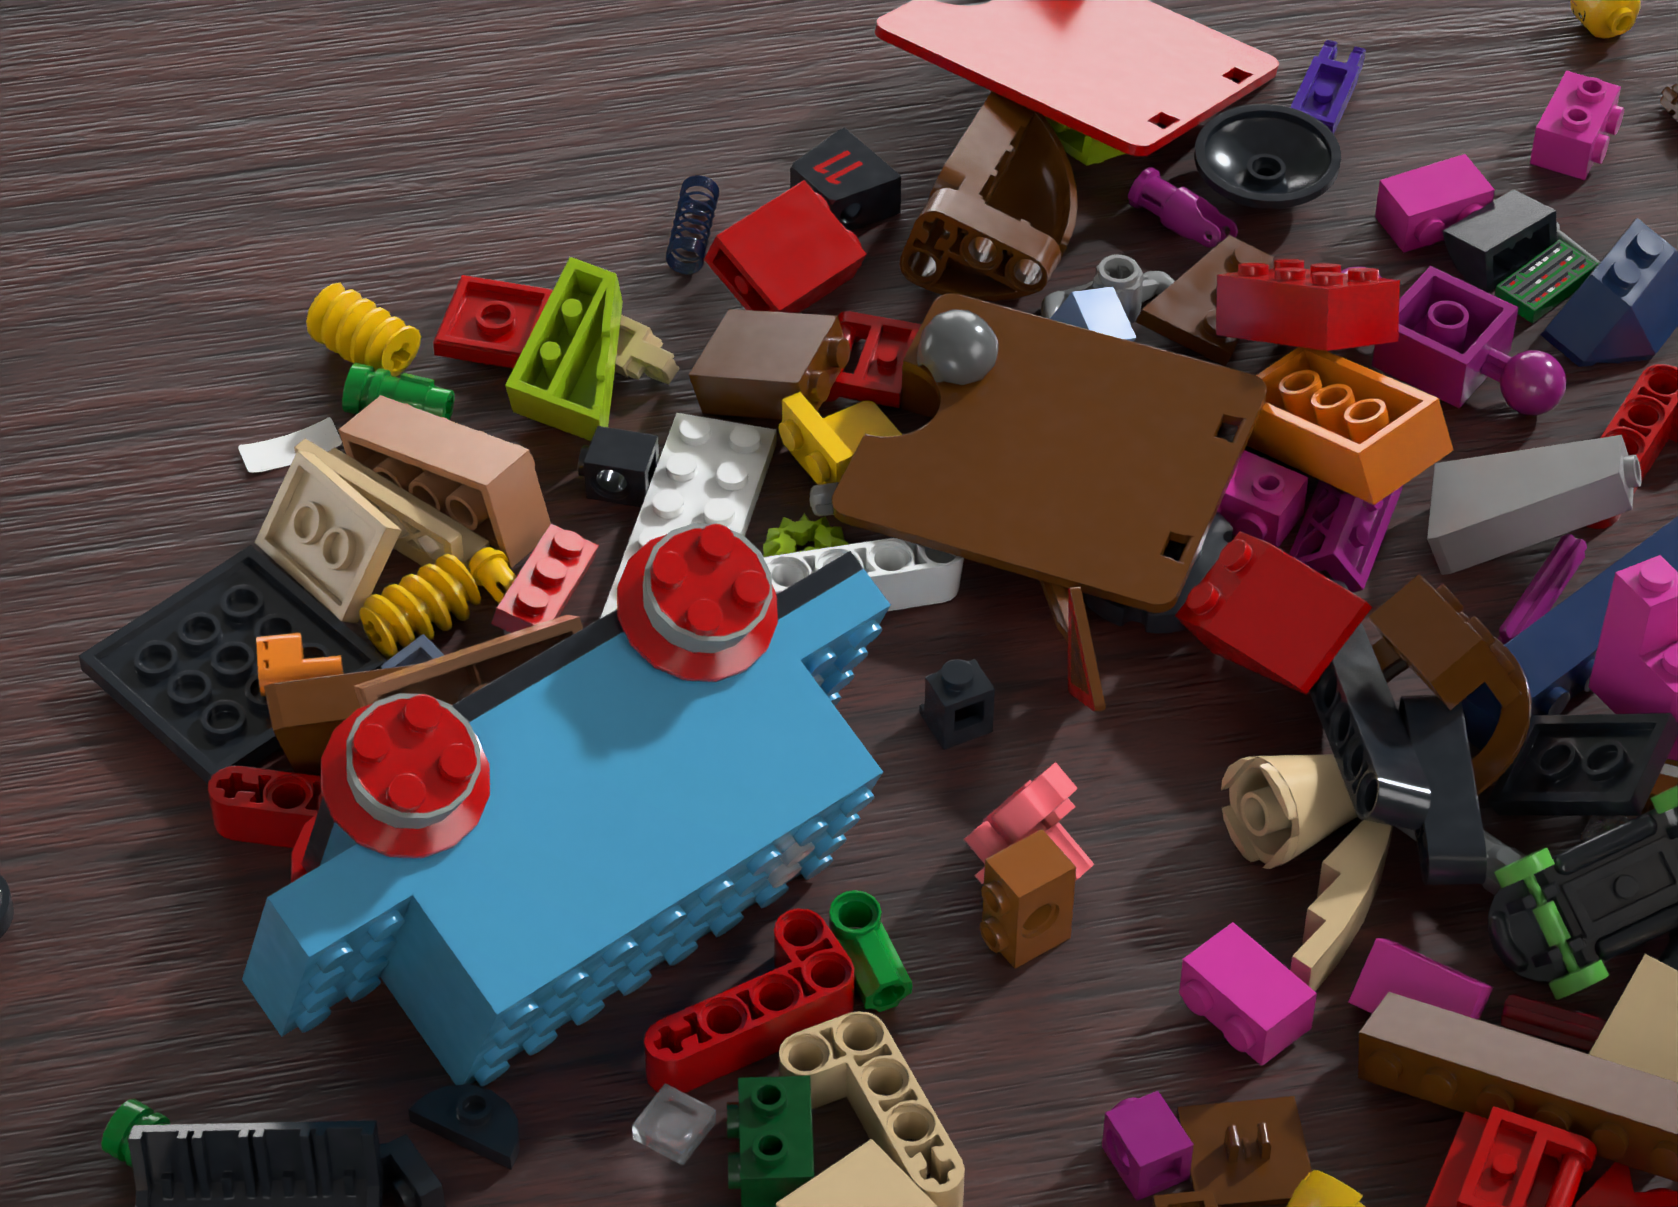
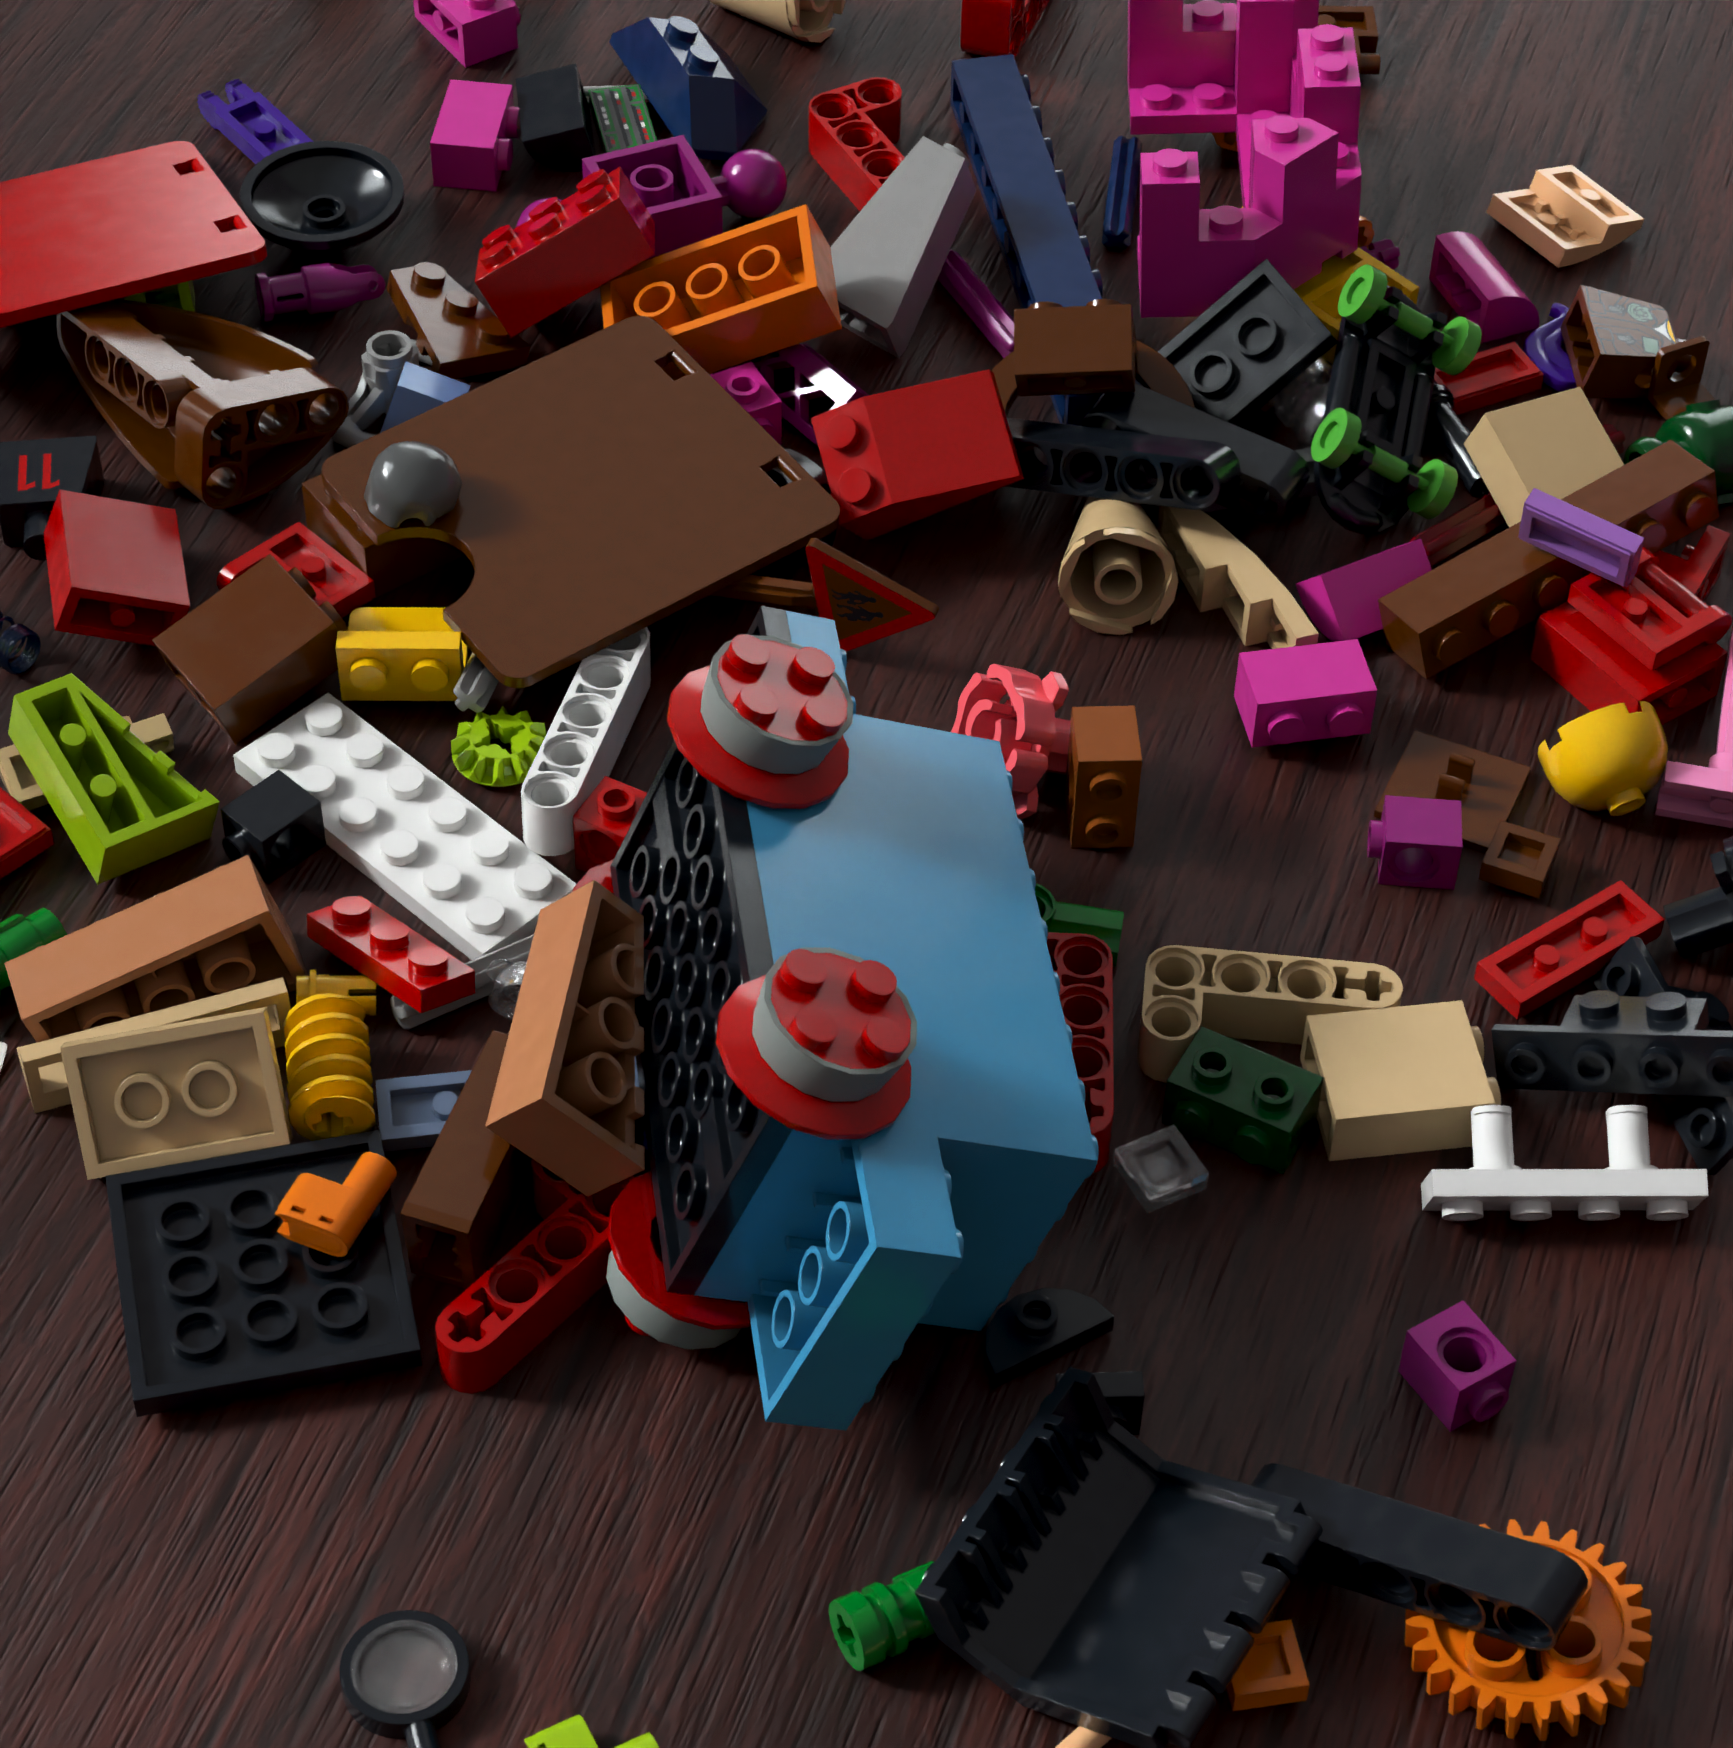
camera: 60 degrees left, 0 degrees up
(1524, 1078) = (1580, 537): none -> medium lavender tile

